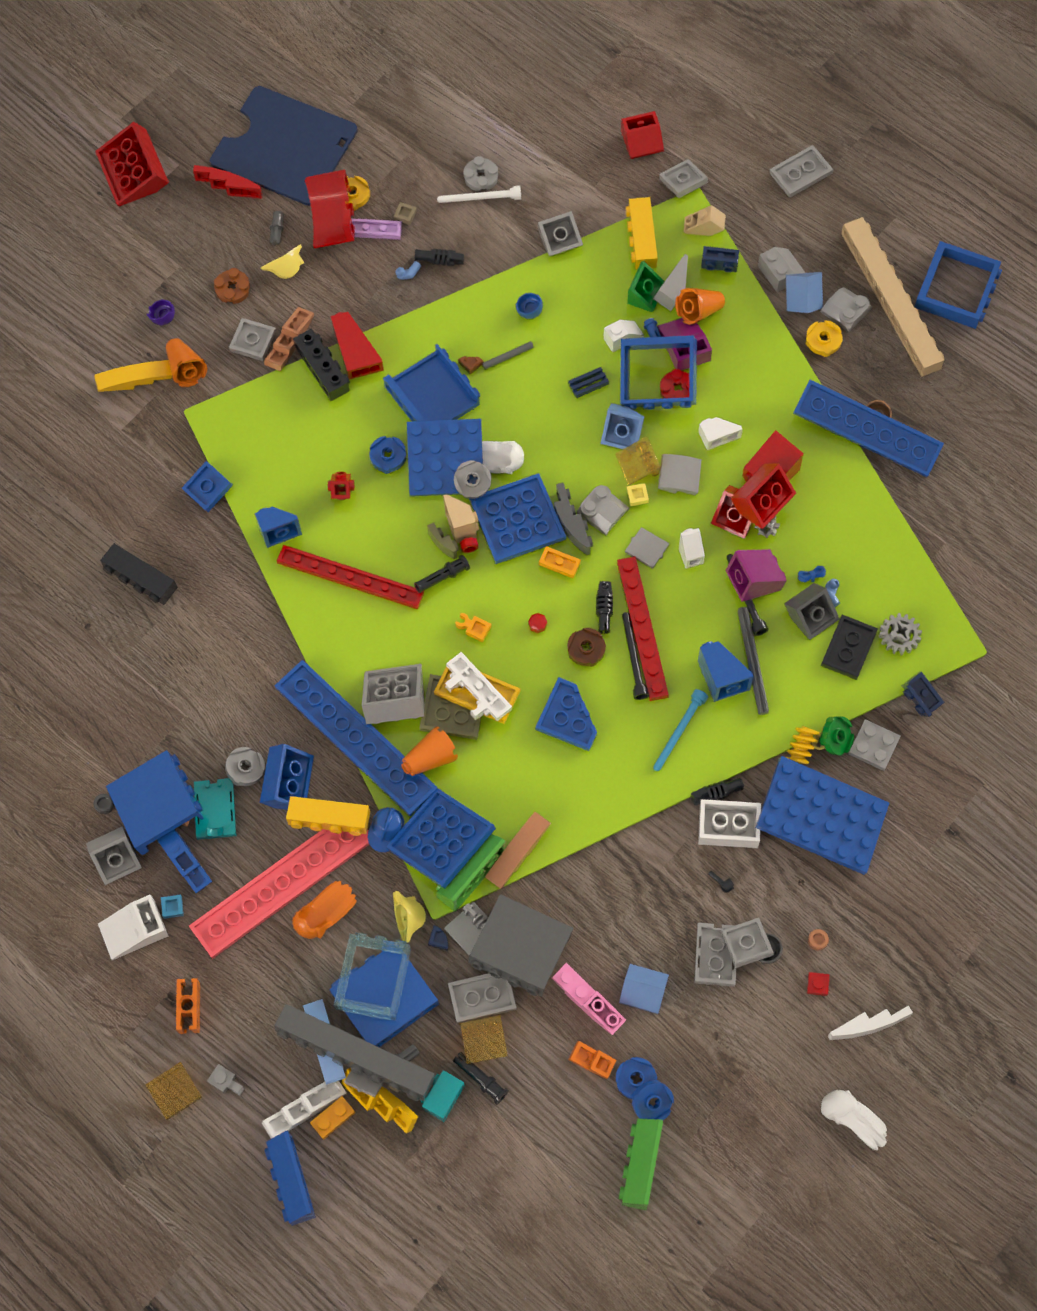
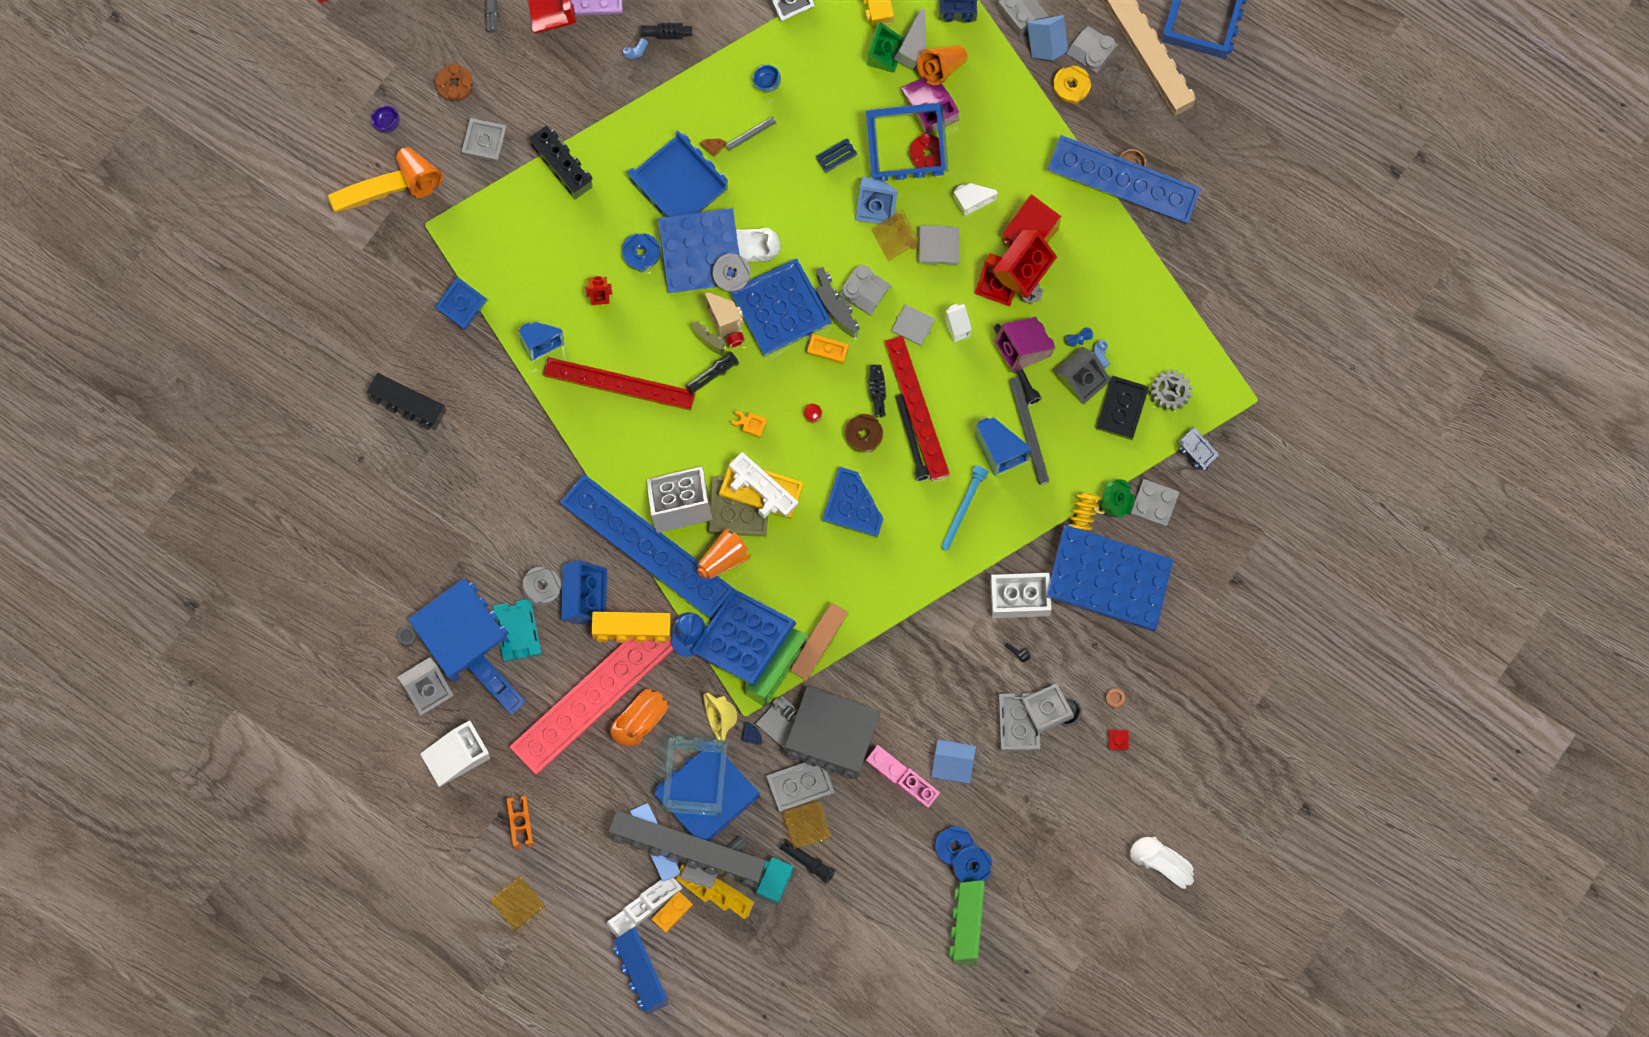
camera: 10 degrees left, 5 degrees up
(172, 906) = (490, 729): dark azure plate -> none
(224, 1080) = (564, 888): light grey plate -> none
(284, 345) = (523, 129): nougat slope -> none
(287, 265) = (509, 54): light yellow hat -> none
(356, 350) = (592, 140): red slope -> none
(592, 1060) = (911, 833): orange slope -> none
(621, 330) = (865, 99): white slope -> none
(637, 494) = (898, 271): light yellow plate -> none
(652, 329) = (896, 93): blue pin -> none
(716, 791) = (1005, 564): black hinge -> none
(863, 1025) = (1164, 775): white slope -> none

